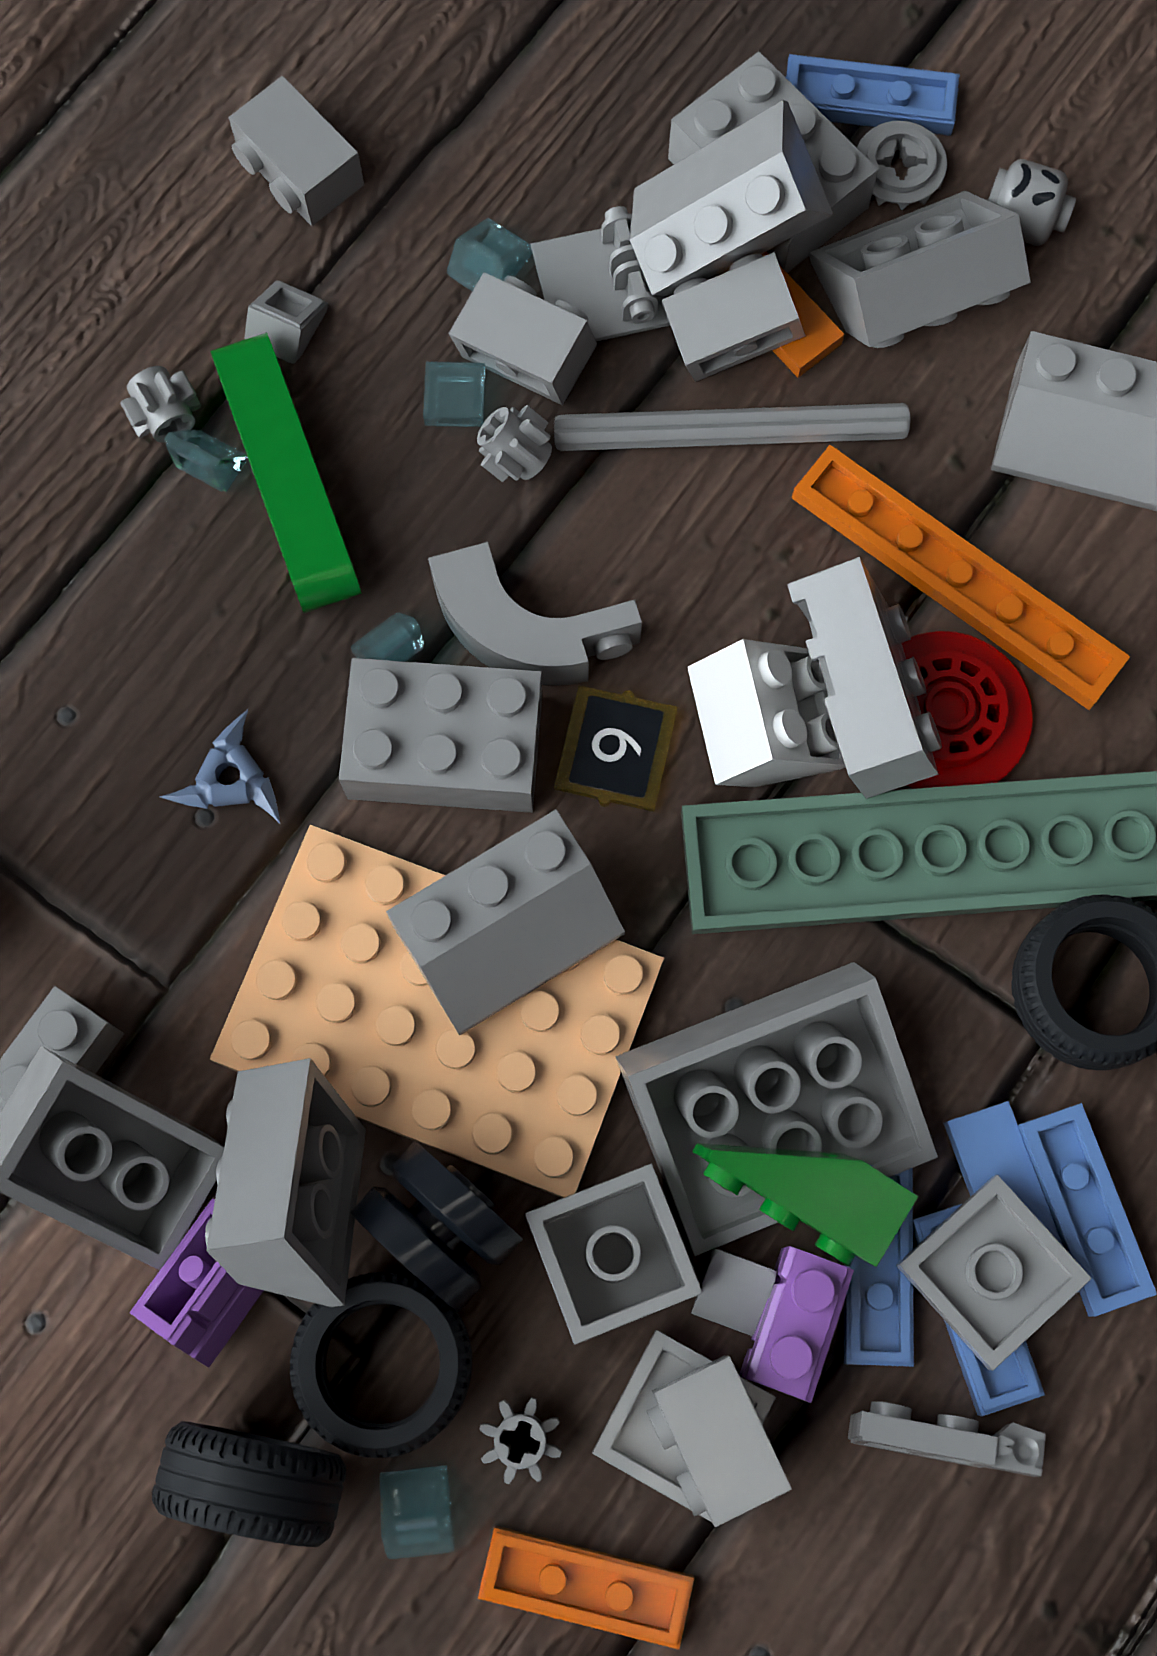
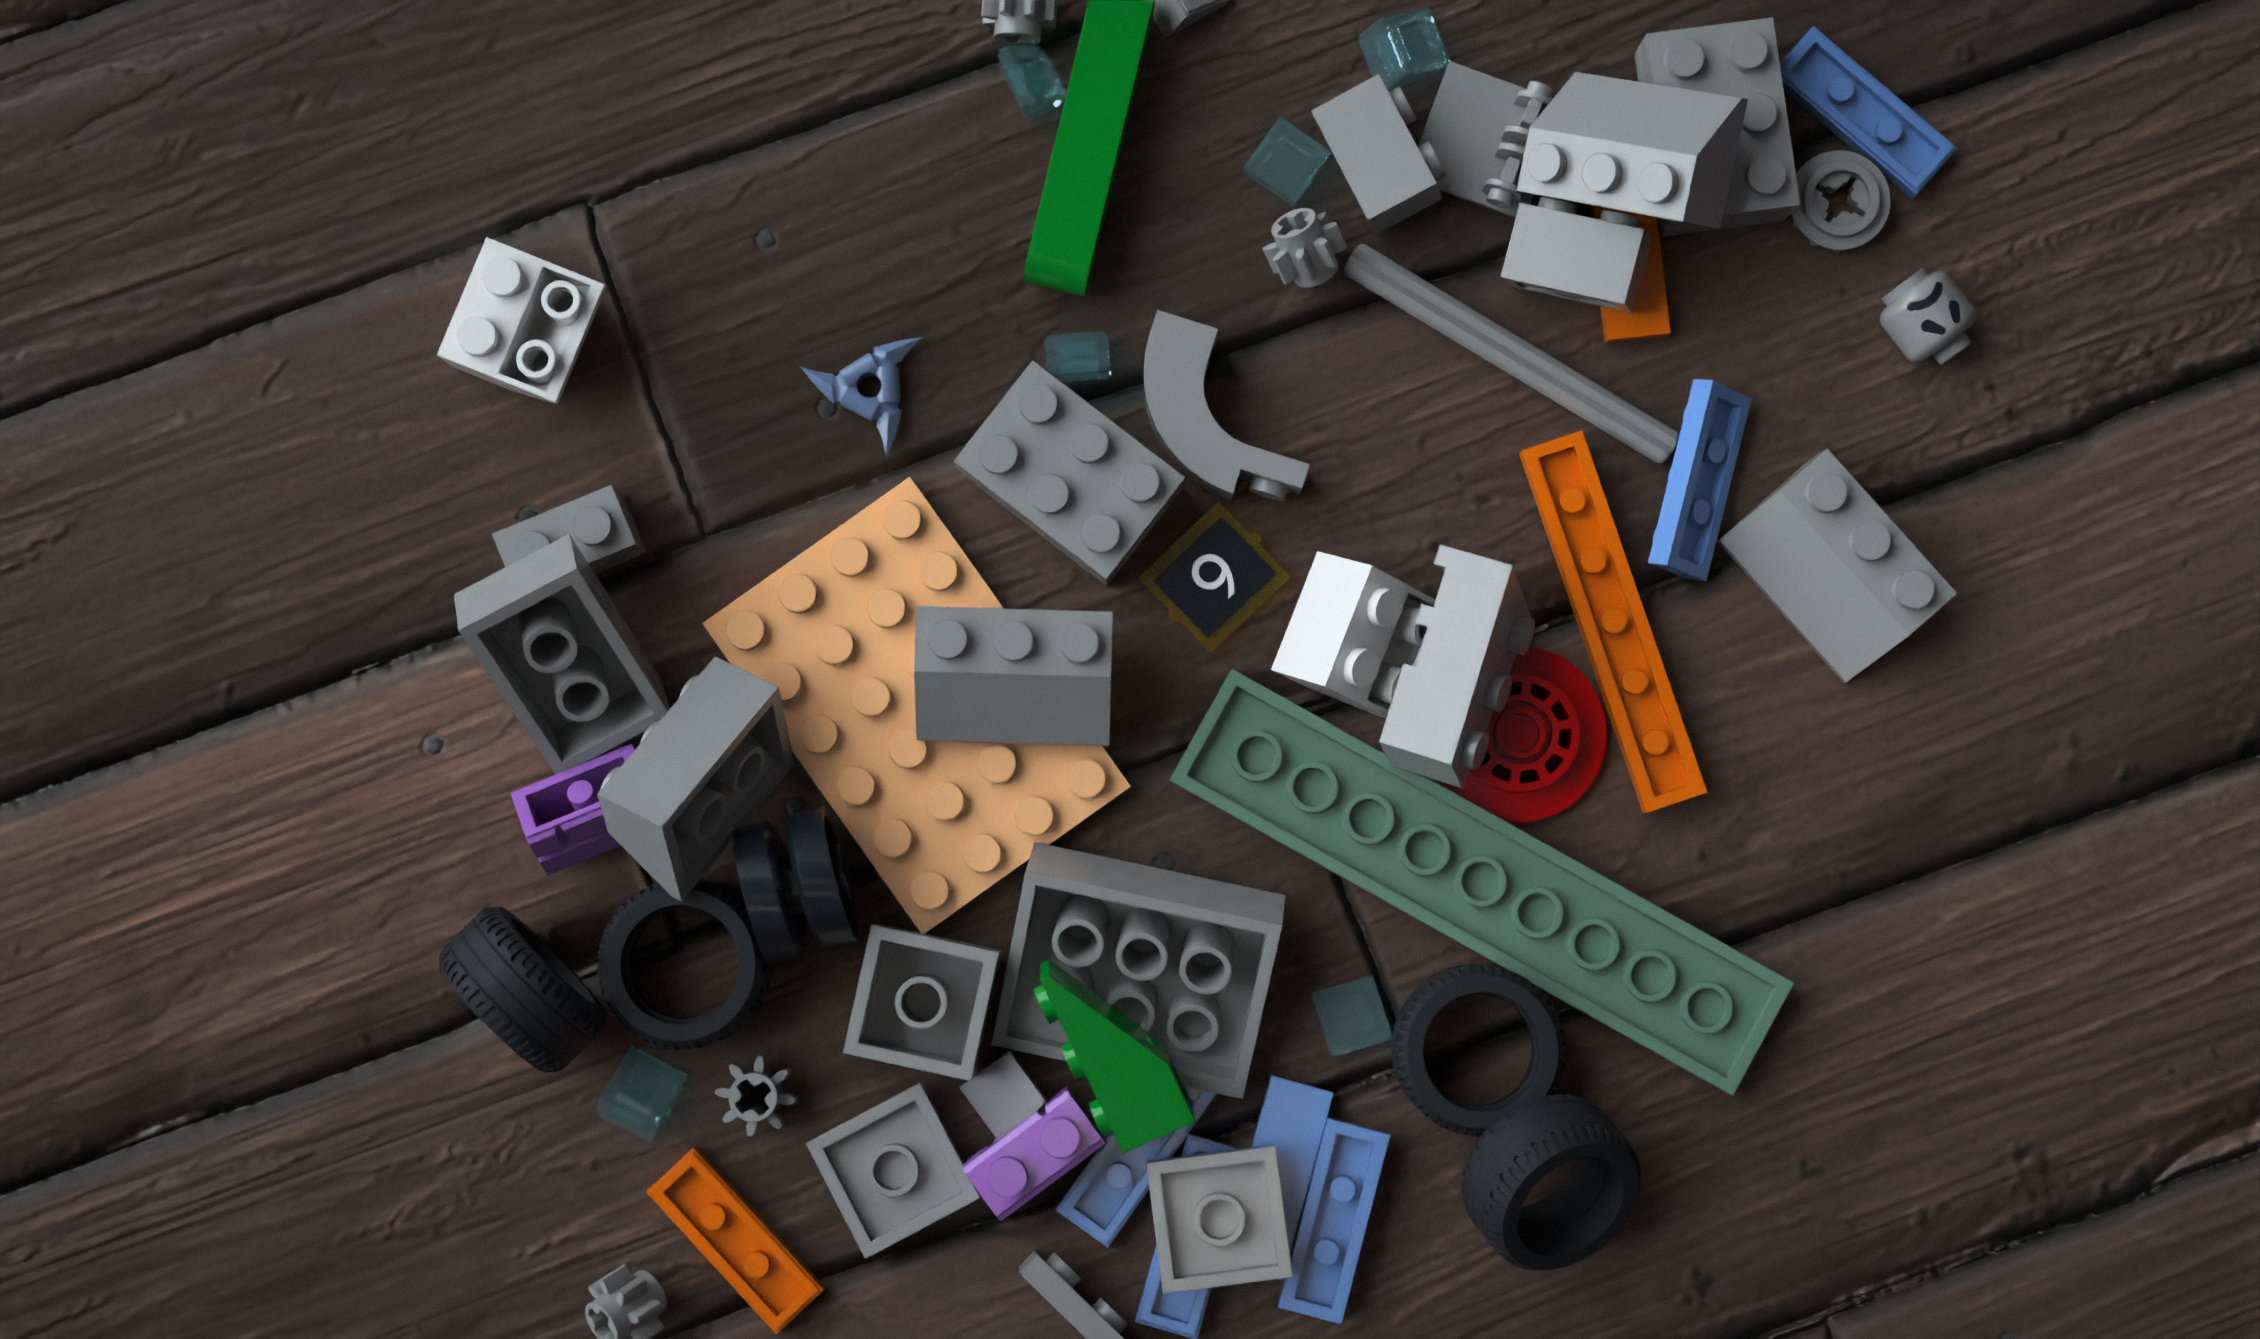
camera: 35 degrees right, 10 degrees up
(719, 1442) = (907, 1200): light grey brick -> none
(923, 268) = (1784, 315): light grey slope -> none
(946, 426) = (1699, 480): none -> medium blue plate
(977, 1028) = (1351, 1016): none -> clear light blue slope

